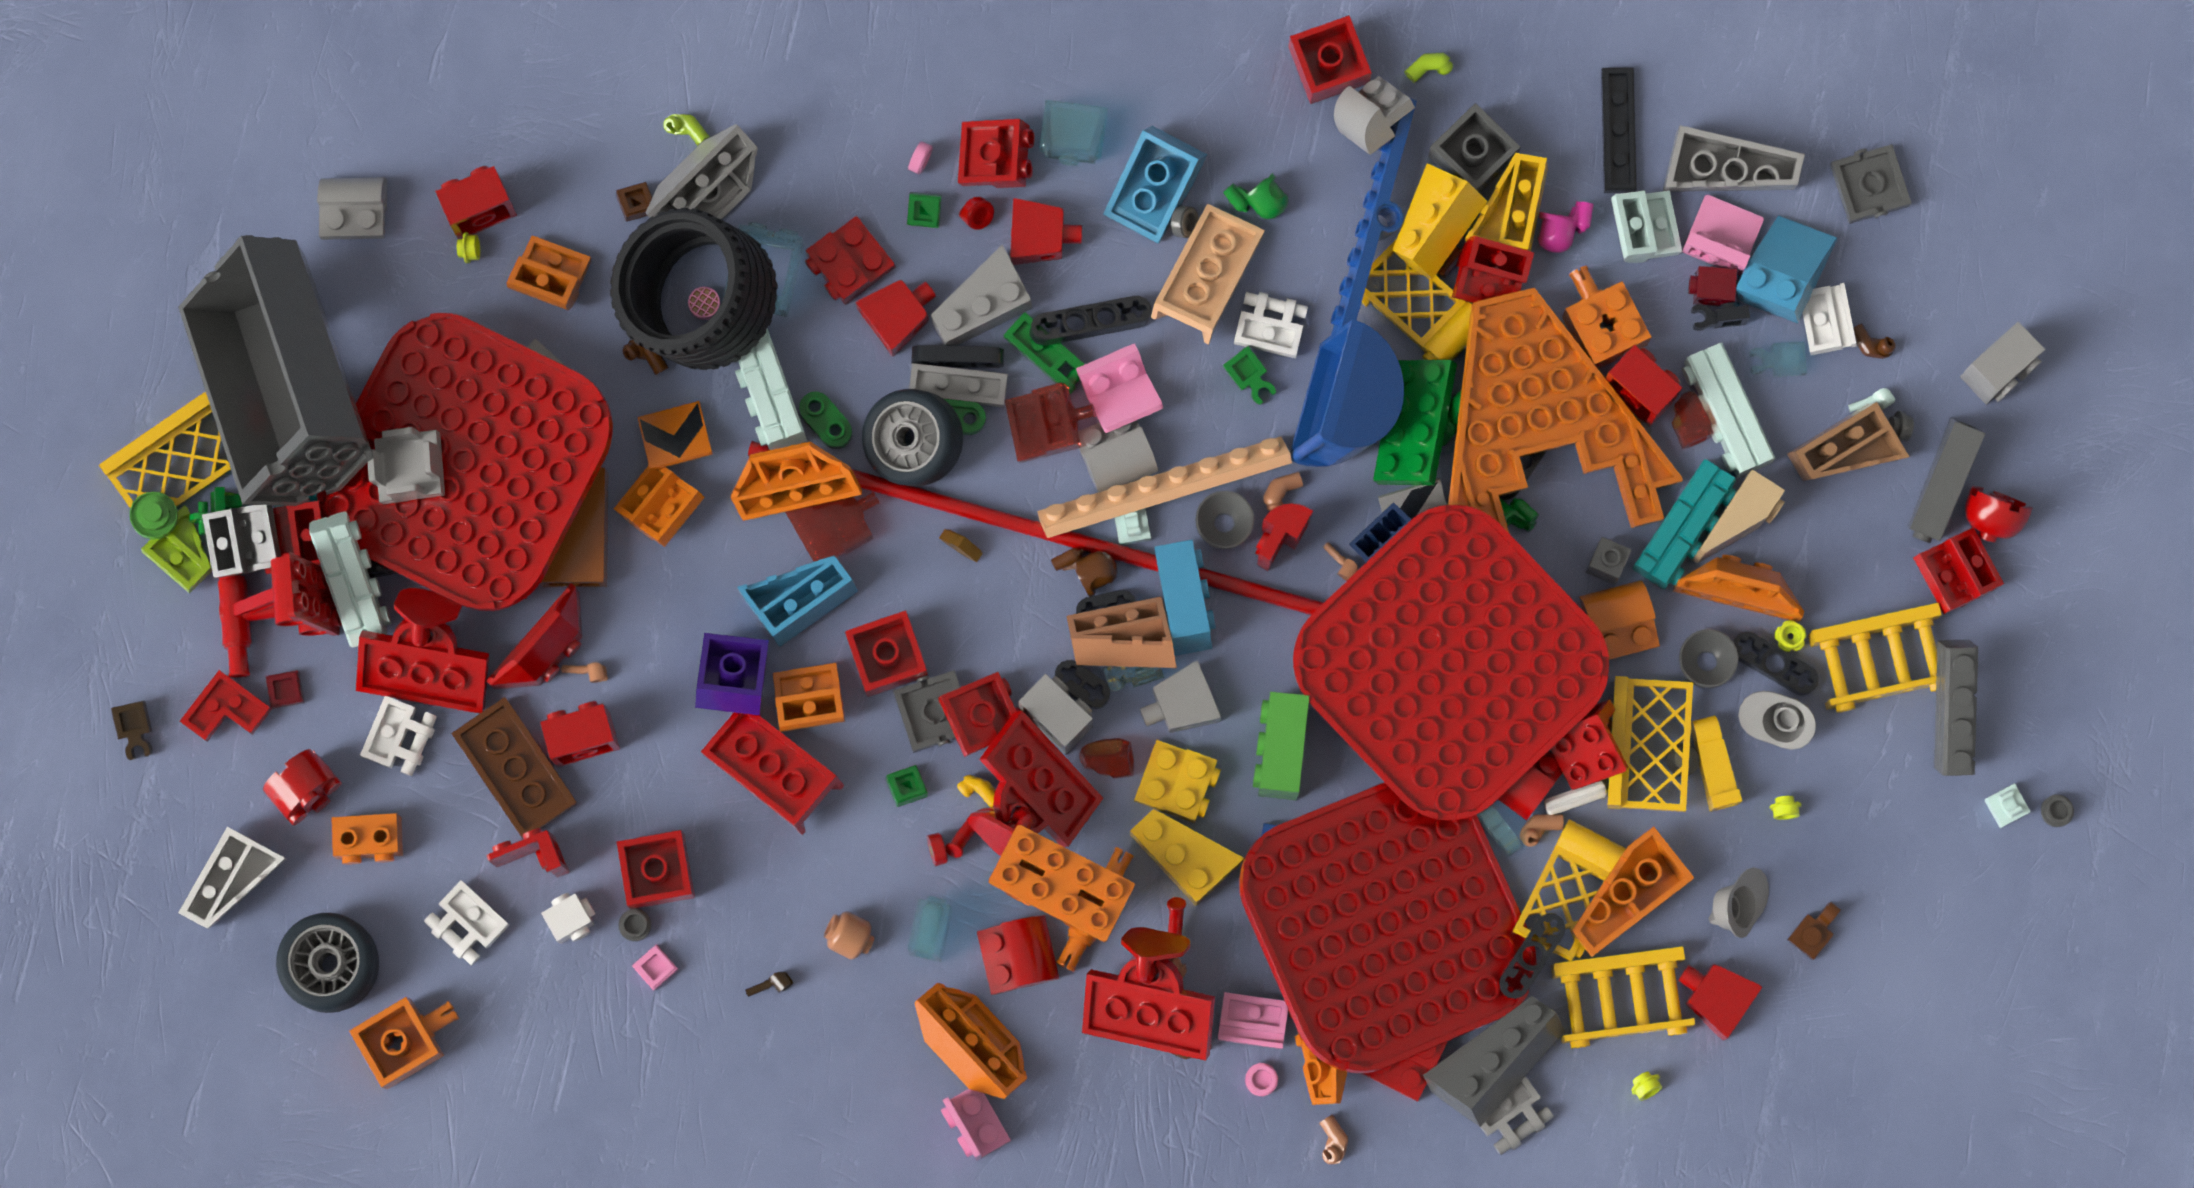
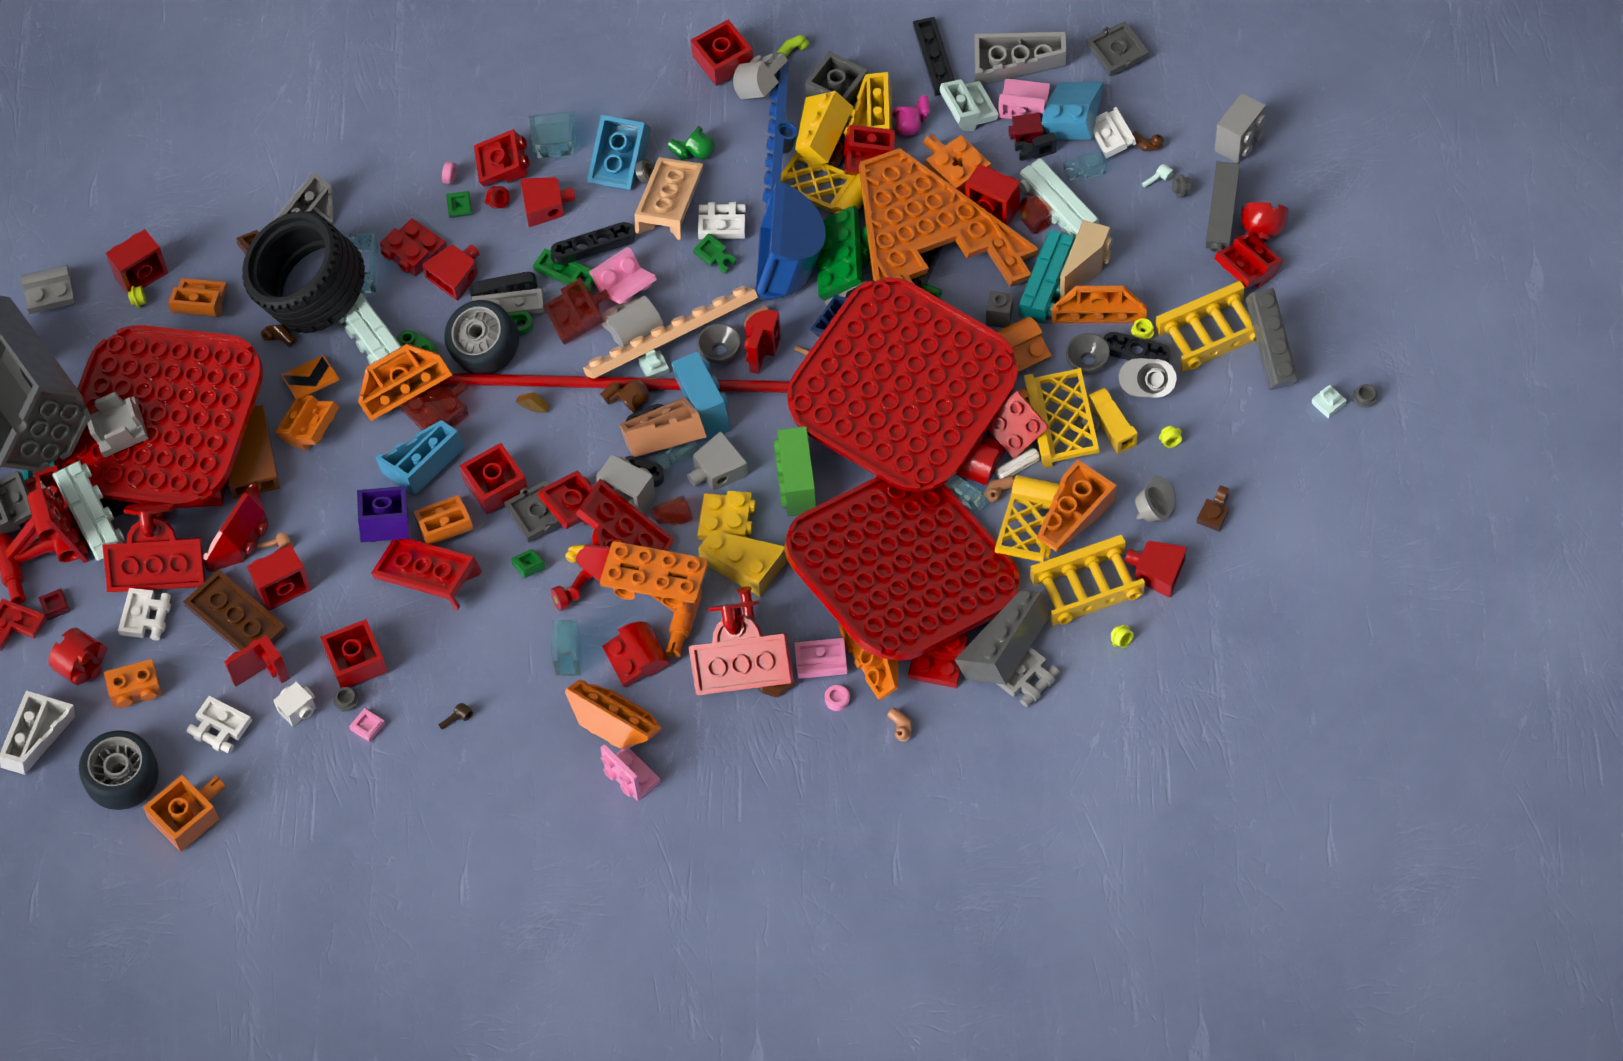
camera: 10 degrees left, 20 degrees down
(685, 125) = (277, 190): lime arm -> none
(849, 935) = (507, 668): nougat head -> none
(982, 301) = (513, 247): light grey wedge -> none
(1525, 980) = (1013, 578): black beam -> none
(1850, 444) = (1149, 202): medium nougat wedge -> none

